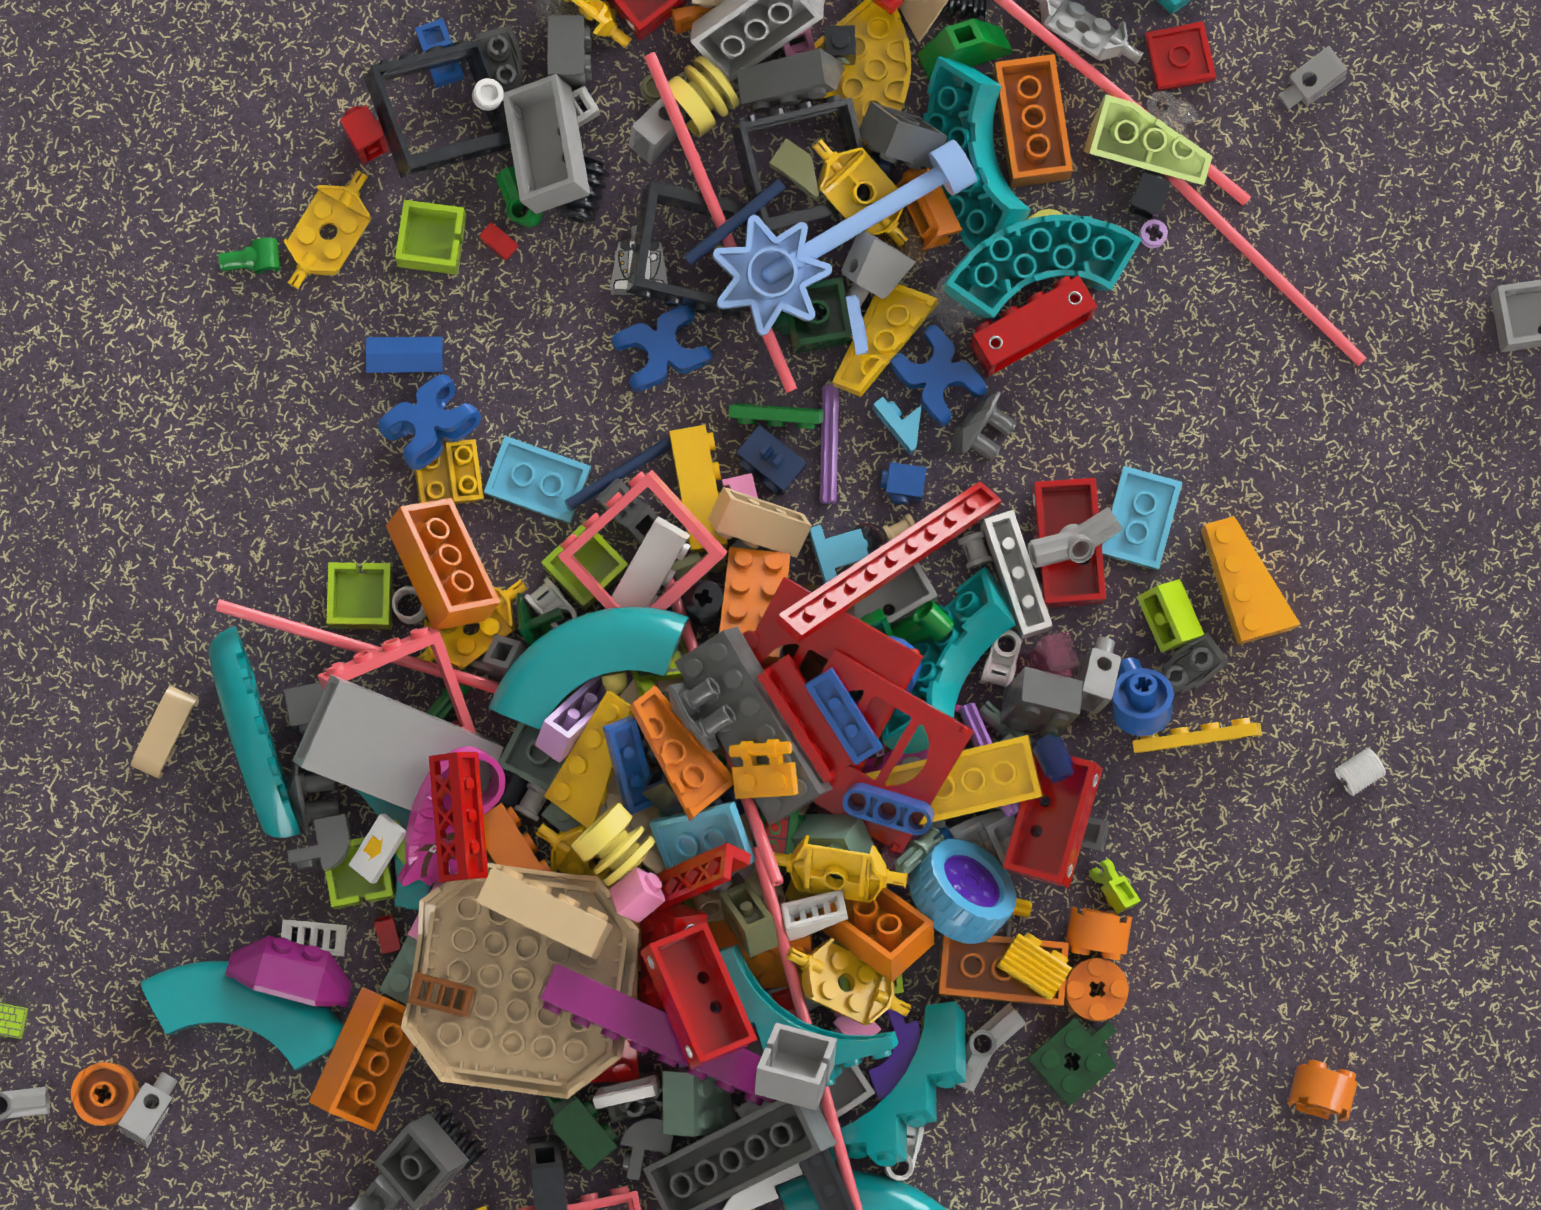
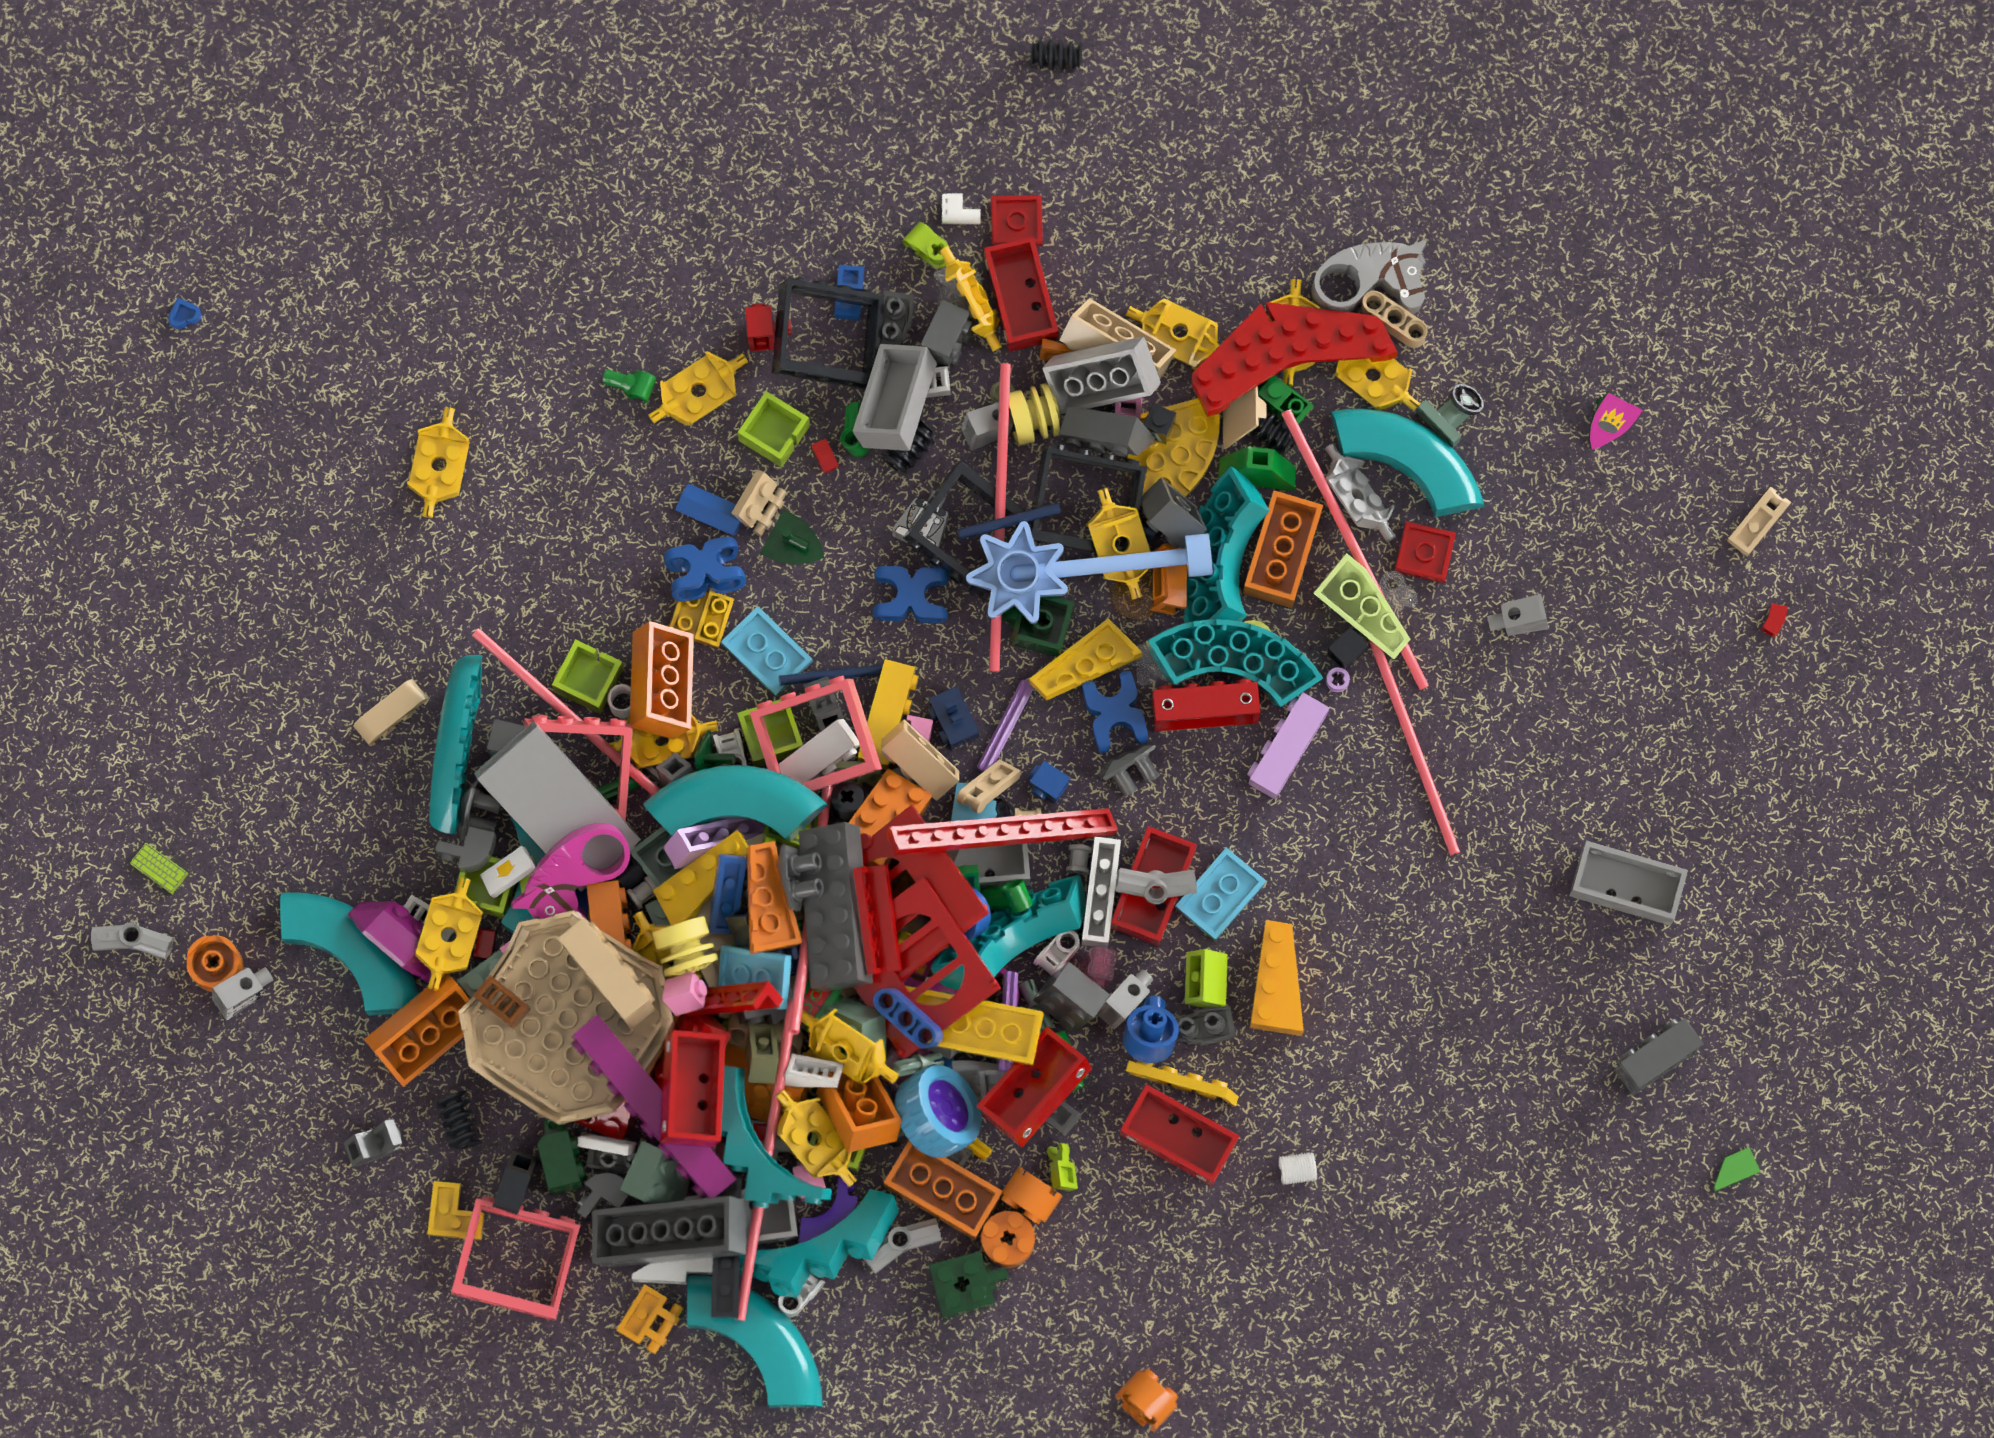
camera: 30 degrees right, 5 degrees down
(80, 413) = (433, 443): none -> yellow plate
(353, 920) = (455, 913): none -> yellow plate
(421, 1161) = (426, 1123): dark grey brick -> none
(446, 323) = (754, 499): none -> tan plate
(464, 816) = (582, 872): red fence -> none
(487, 94) = (868, 339): white tile -> none
(507, 349) = (792, 541): none -> dark green shield
(615, 681) = (748, 828): light yellow hinge -> none
(763, 780) = (820, 949): light orange plate -> none
(776, 415) = (973, 685): green plate -> none
(795, 1066) = (740, 1176): light grey piece -> none
(797, 166) = (1077, 499): olive slope -> none
(843, 716) = (906, 930): blue plate -> none
(844, 516) = (988, 786): none -> tan plate
(857, 325) = (1068, 644): light blue tile -> none
(874, 267) = (1103, 605): light grey torso -> none
(903, 430) = (1071, 741): medium azure slope -> none
(1035, 966) = (966, 1195): yellow brick -> none
(1053, 758) = (1054, 1039): clear blue brick -> none
(1136, 327) = (1288, 745): none -> lavender brick
(1253, 806) = (1151, 1130): none -> red piece

